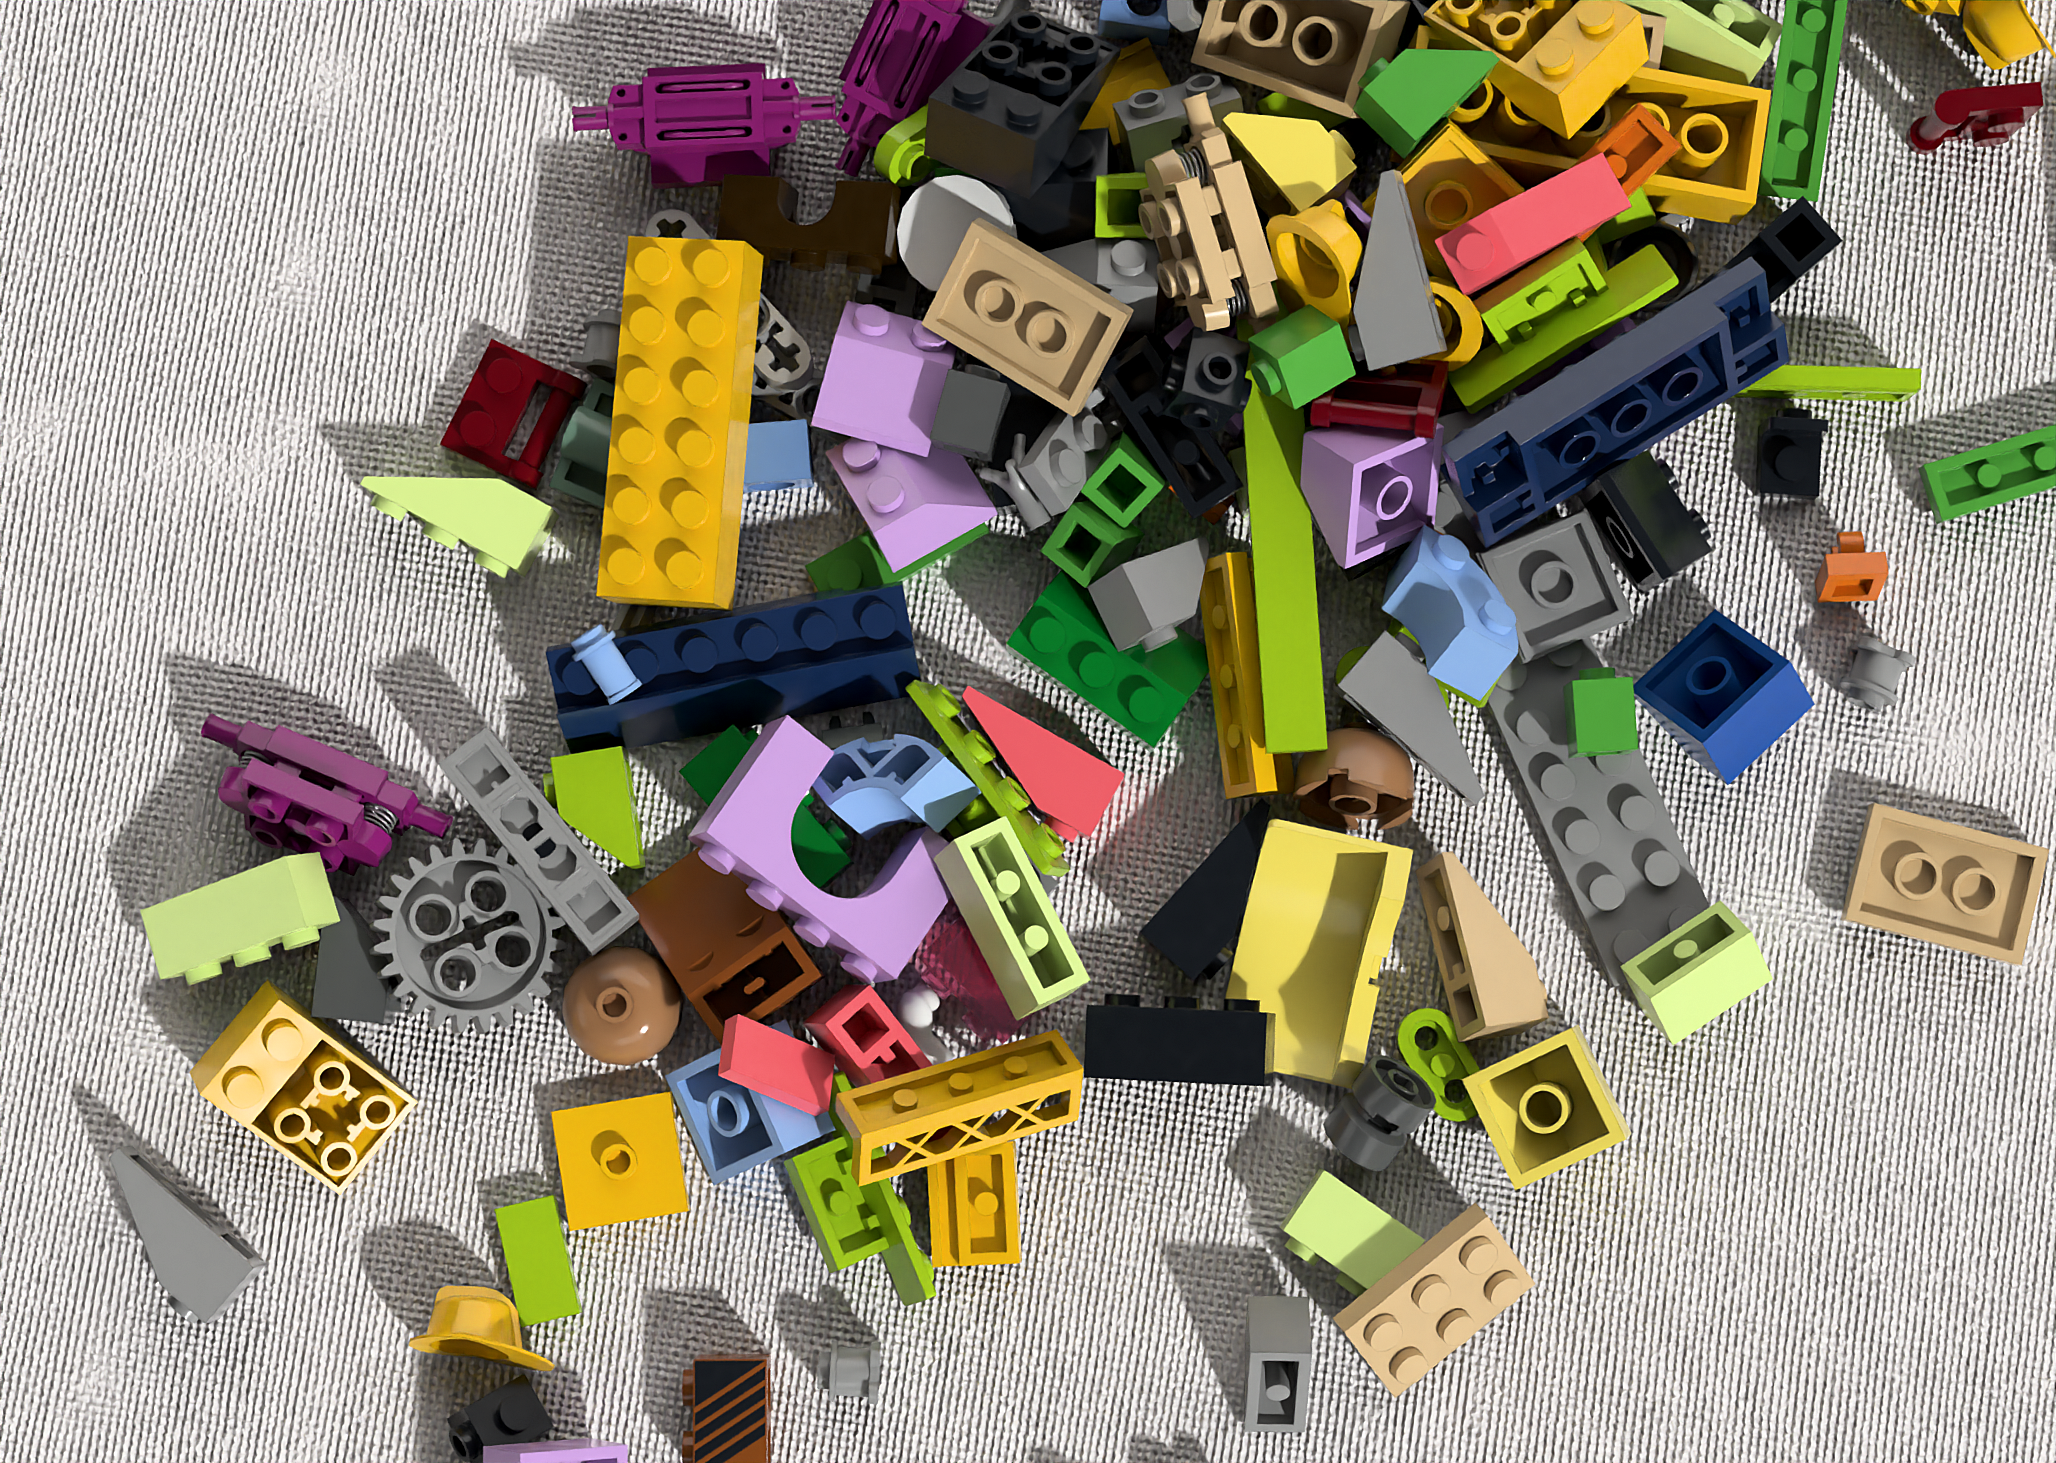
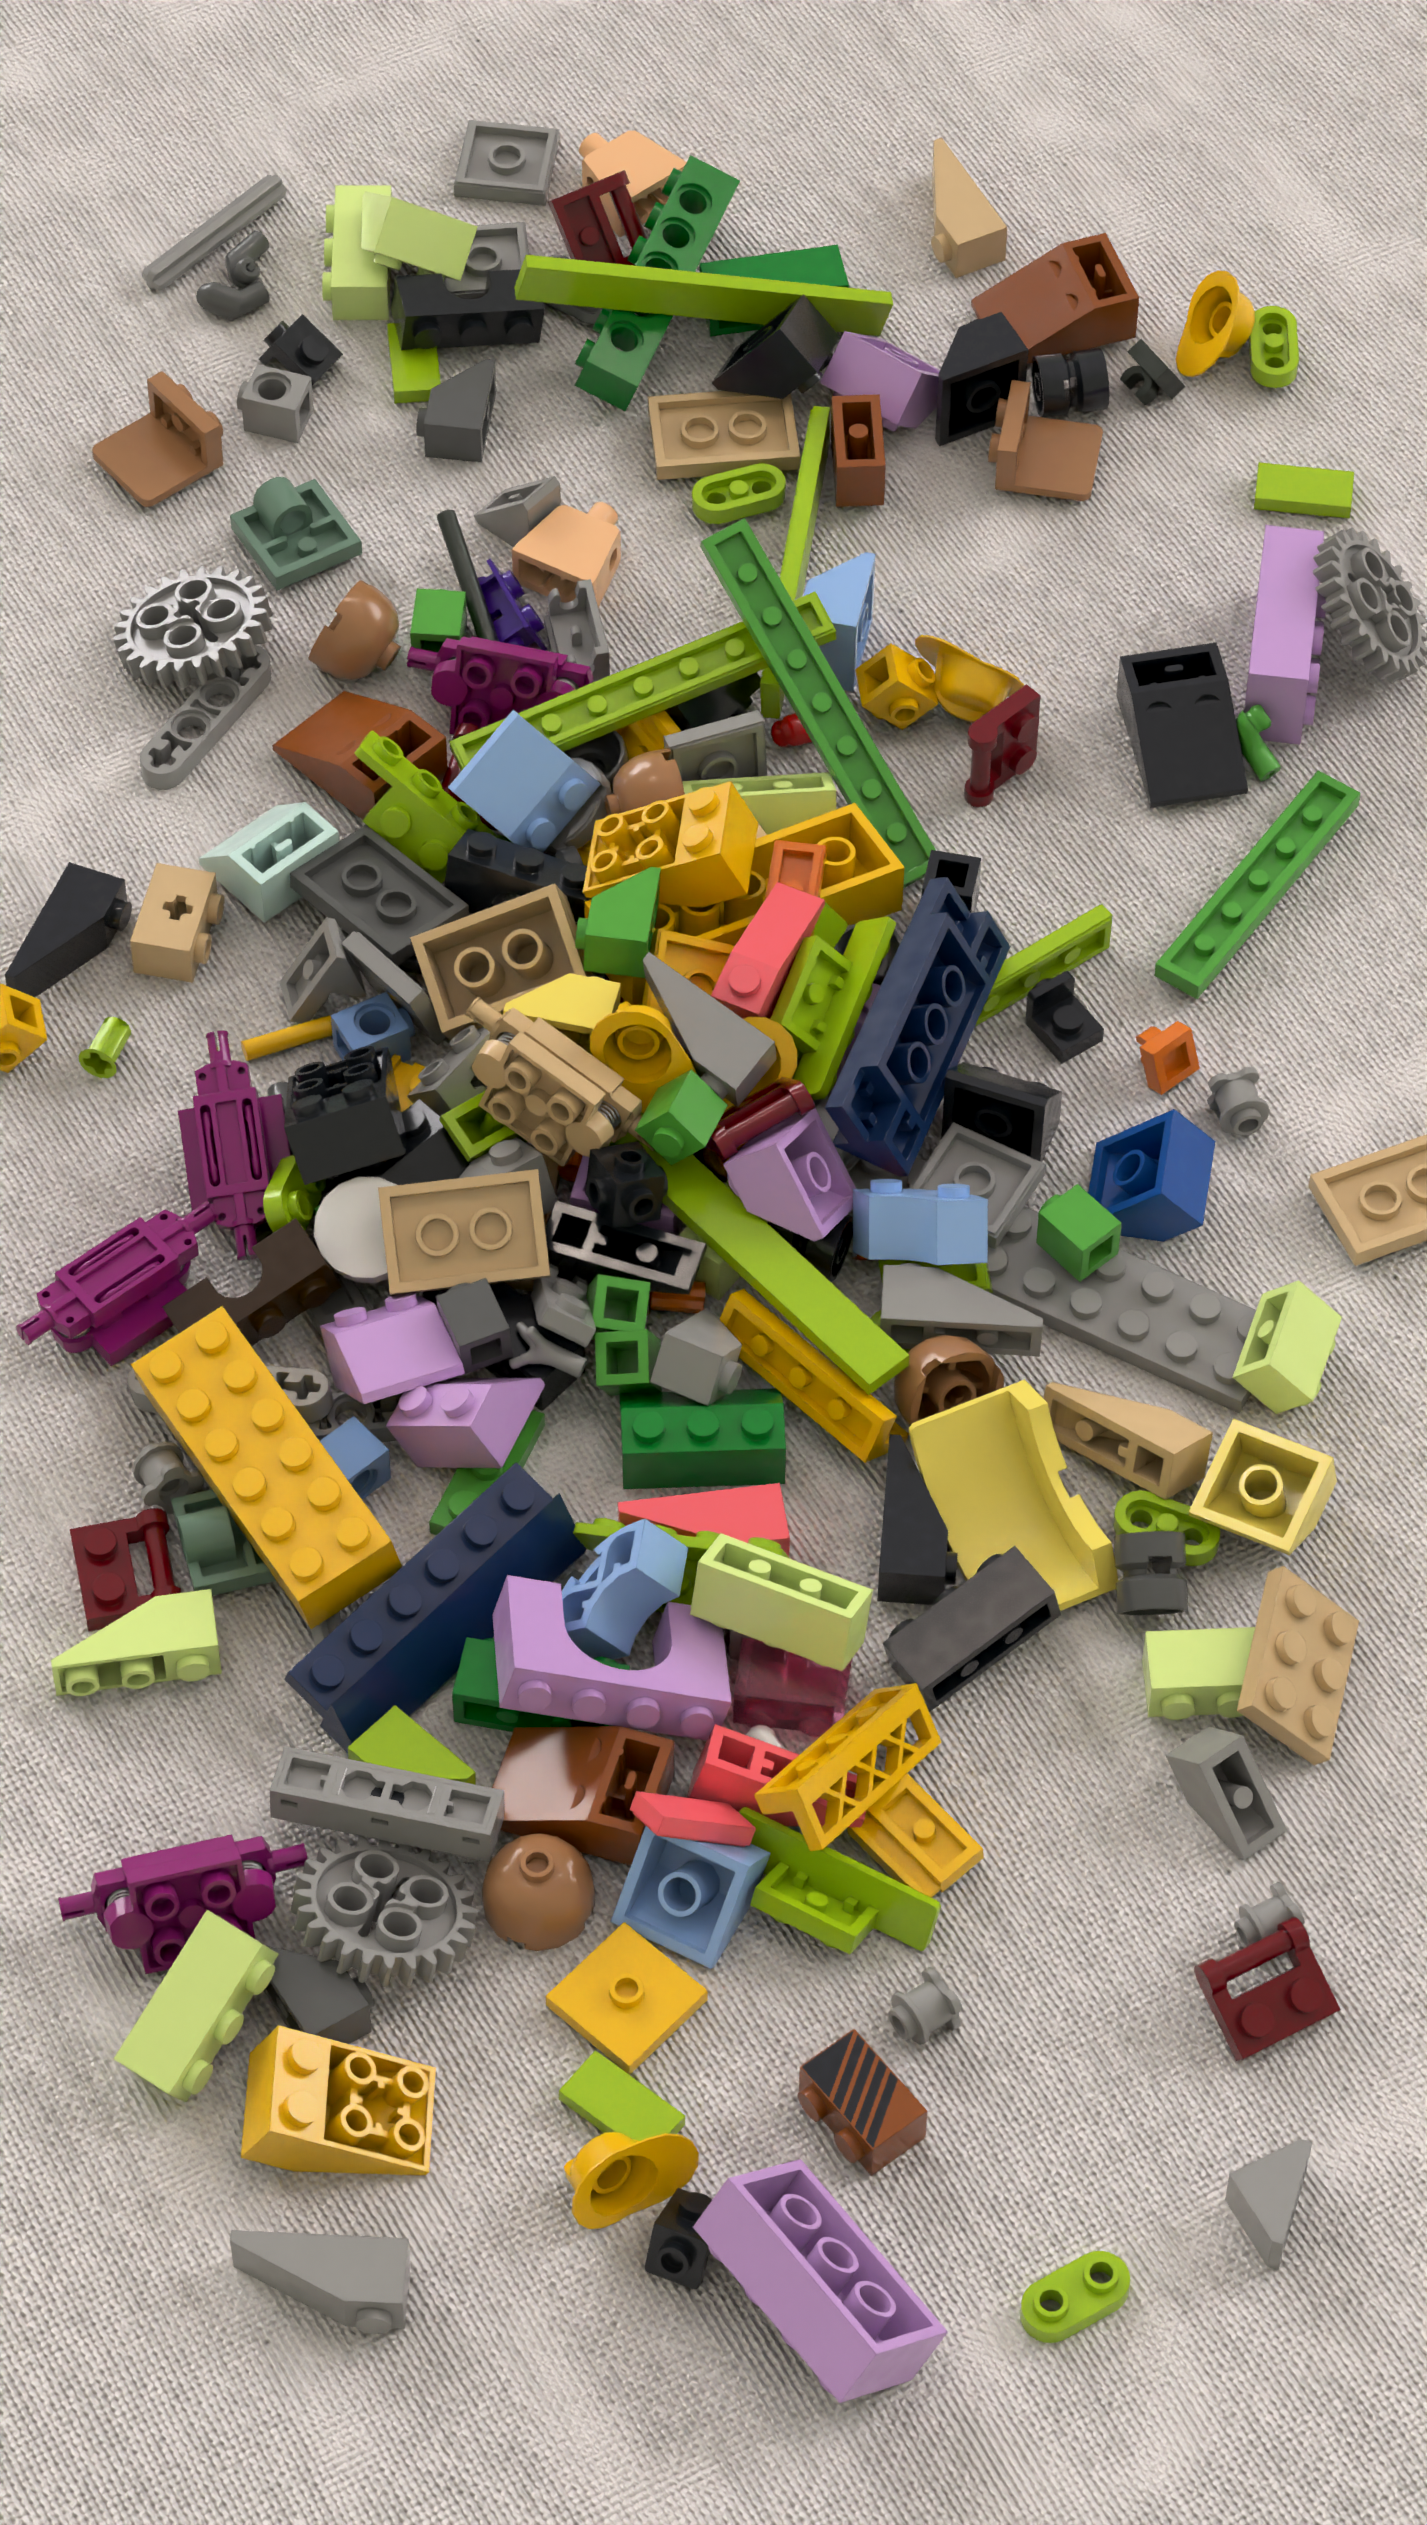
camera: 40 degrees left, 30 degrees down
(605, 663) = (342, 1639): light blue pin -> none

